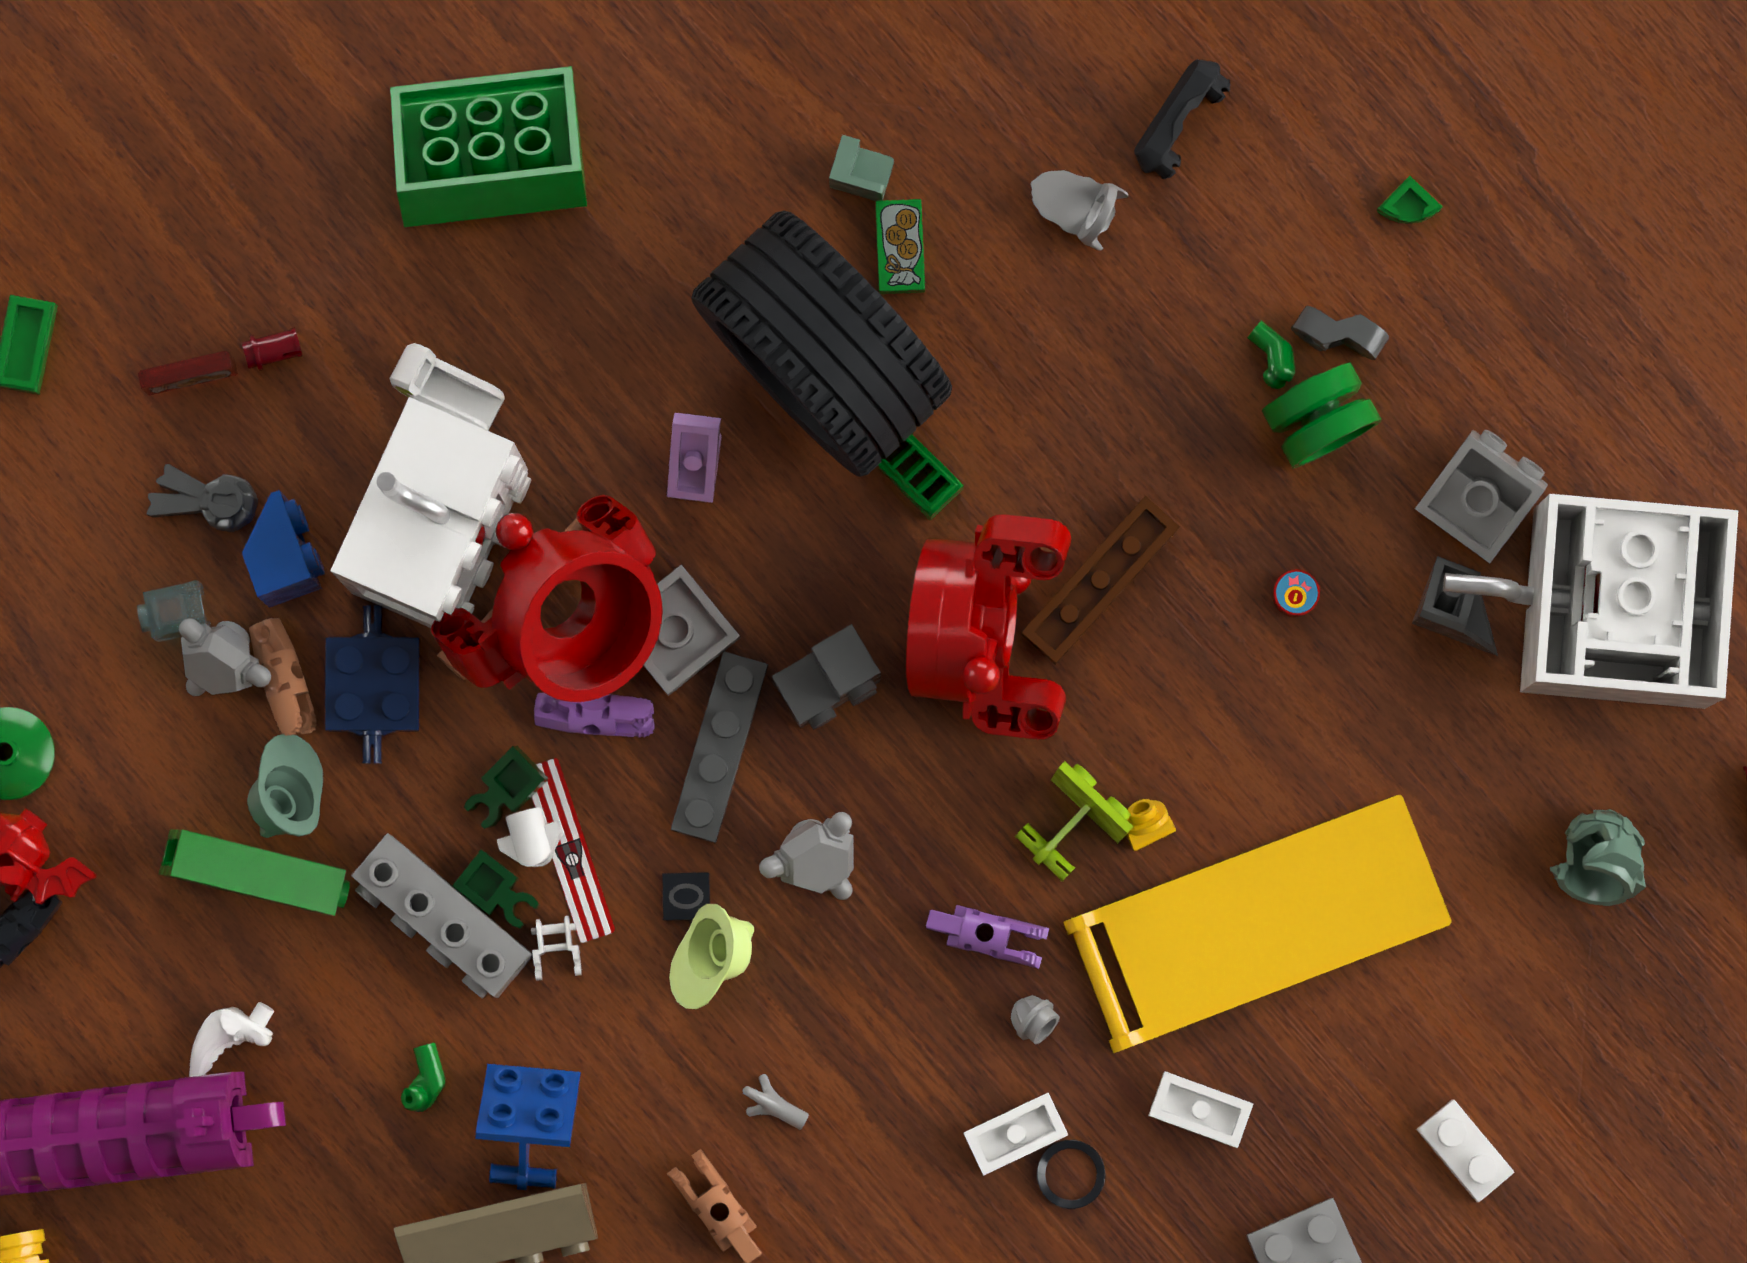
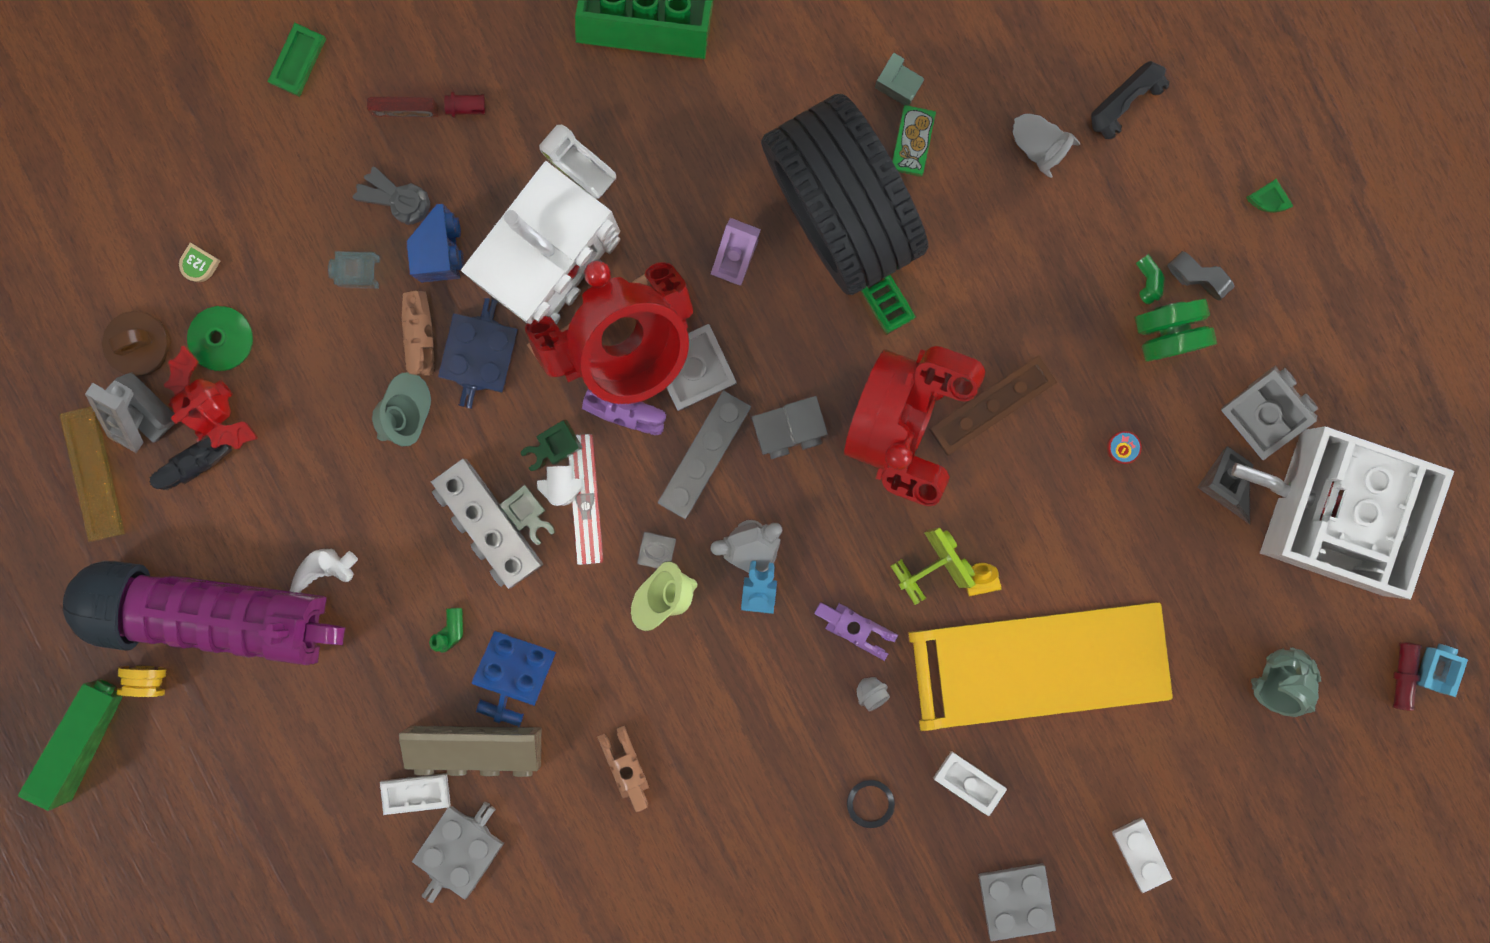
camera: 10 degrees right, 5 degrees up
(219, 658) = (376, 309): light grey rock -> none
(254, 872) = (365, 462): green slope -> none
(541, 930) = (559, 550): white piece -> none
(772, 1104) = (680, 706): light grey bar -> none
(841, 913) = (759, 590): none -> dark azure plate
(1015, 1134) = (840, 768): white plate -> none

